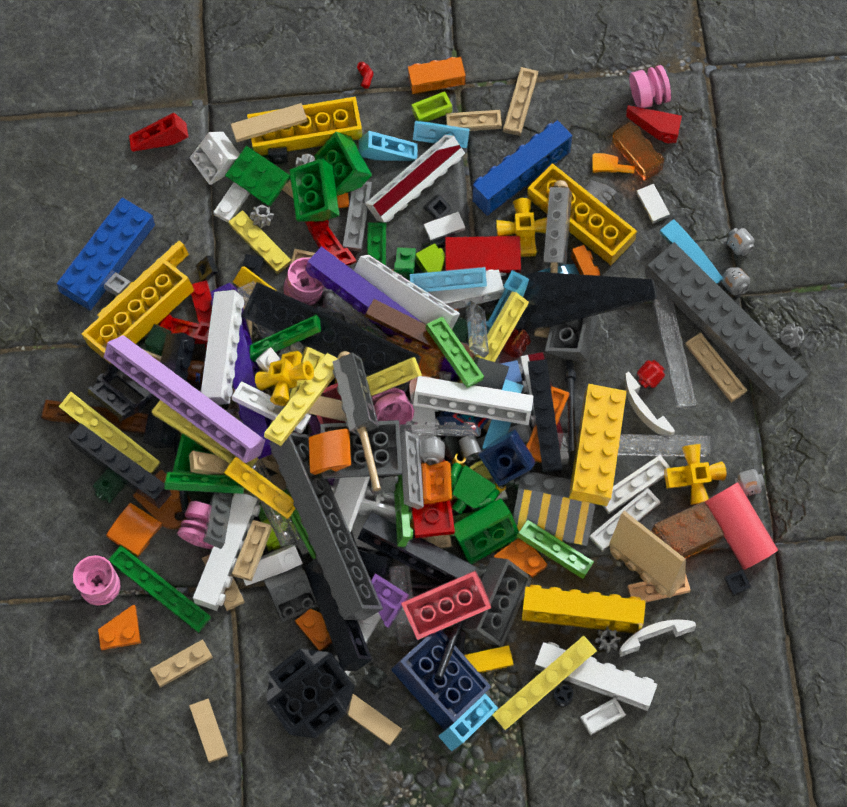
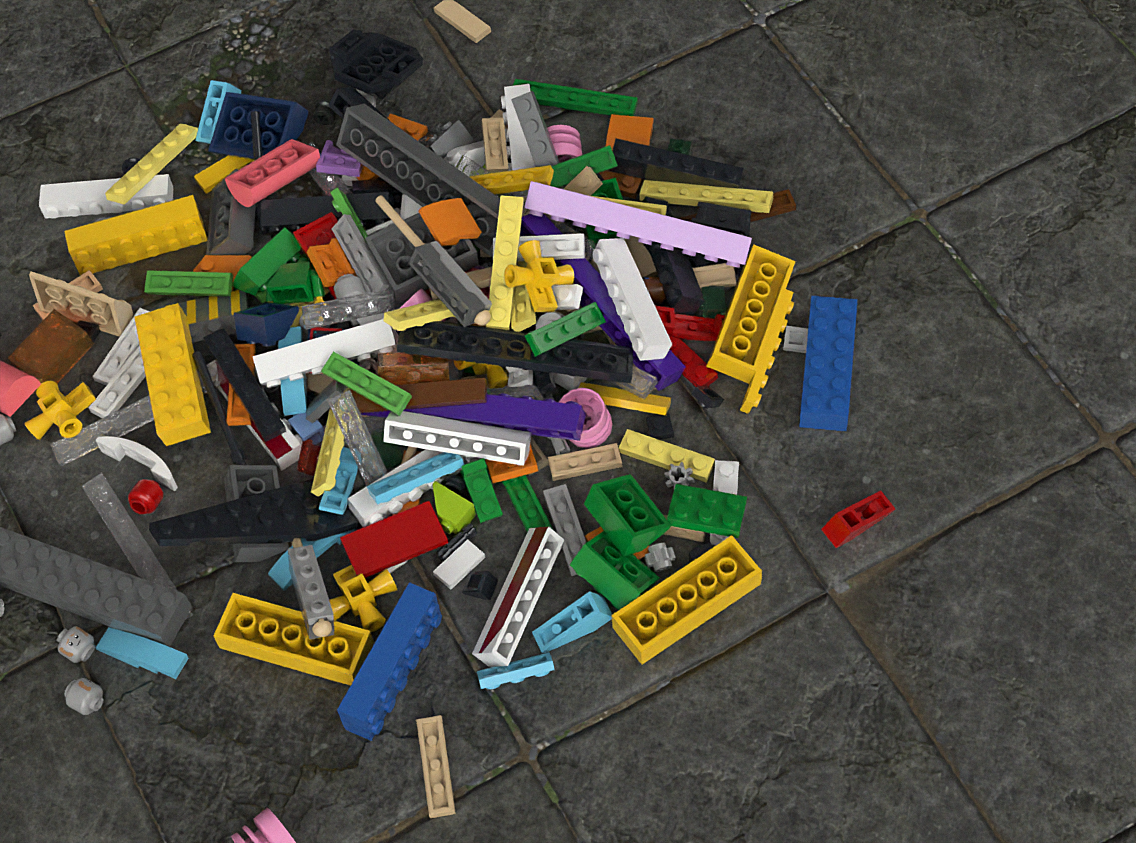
camera: 160 degrees right, 10 degrees down
(89, 574) = (635, 71): bright pink wheel -> none
(121, 630) = (590, 57): orange wing -> none
(181, 663) = (517, 56): tan plate -> none
(214, 156) = (773, 522): white slope -> none
(269, 122) = (727, 567): tan tile -> none
(324, 237) = (568, 472): red slope -> none
(367, 74) = (650, 713): red arm -> none
(373, 721) = (310, 84): tan tile -> none
(432, 107) = (543, 698): lime piece -> none
(436, 75) = (559, 746): orange brick -> none
(475, 120) = (484, 712): tan tile -> none
(583, 260) = (267, 584): orange piece -> none
(602, 716) = (91, 170): white tile -> none
(603, 193) = (281, 677): flat silver hand -> none
(609, 163) = (288, 732): light orange piece -> none
(638, 150) = (254, 759): clear orange brick -> none
(653, 203) = (213, 703): white tile -> none
(659, 124) = (238, 807): red slope -> none
(678, 626) = (50, 263): white slope -> none
(716, 367) = (71, 540): tan tile -> none

